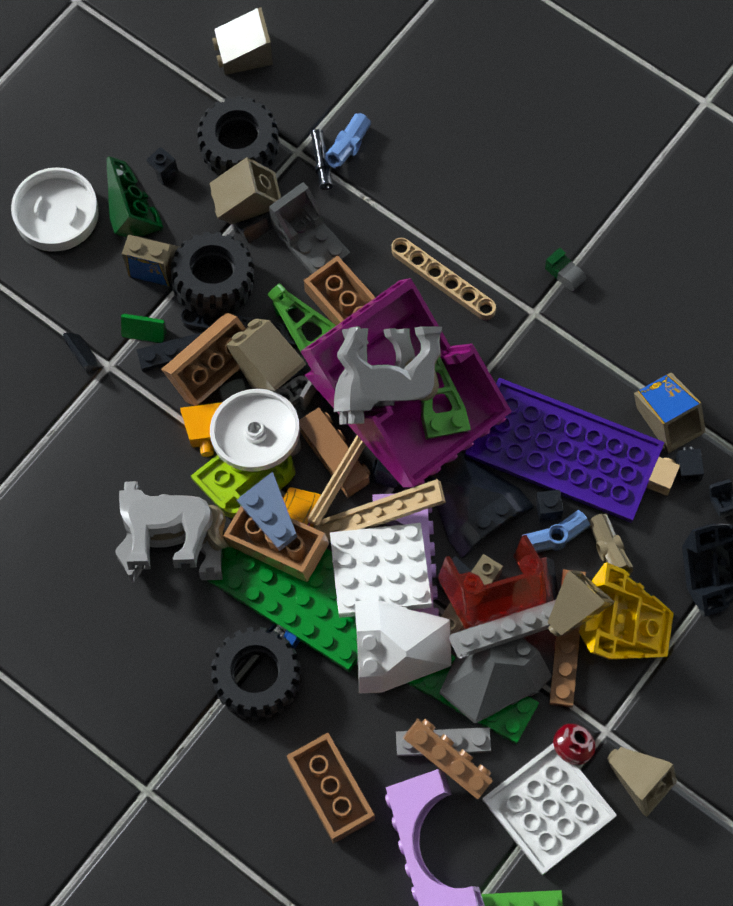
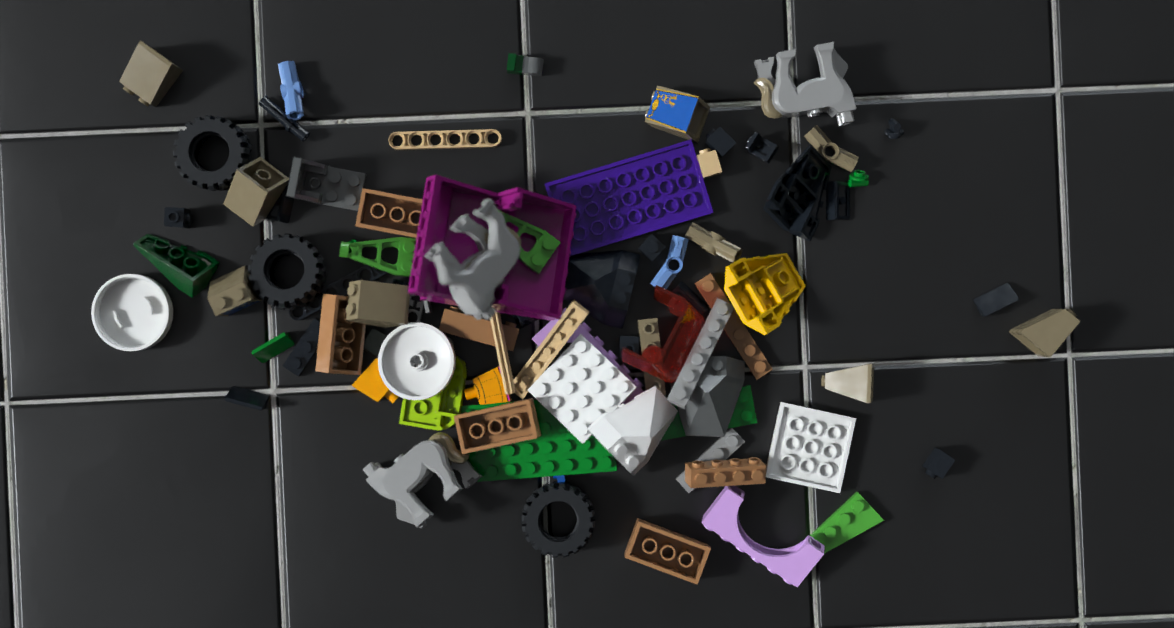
camera: 40 degrees left, 20 degrees up
(269, 512) = (477, 414): sand blue wing -> none
(569, 748) = (789, 400): dark red piece -> none
(576, 603) = (732, 309): dark tan slope -> none

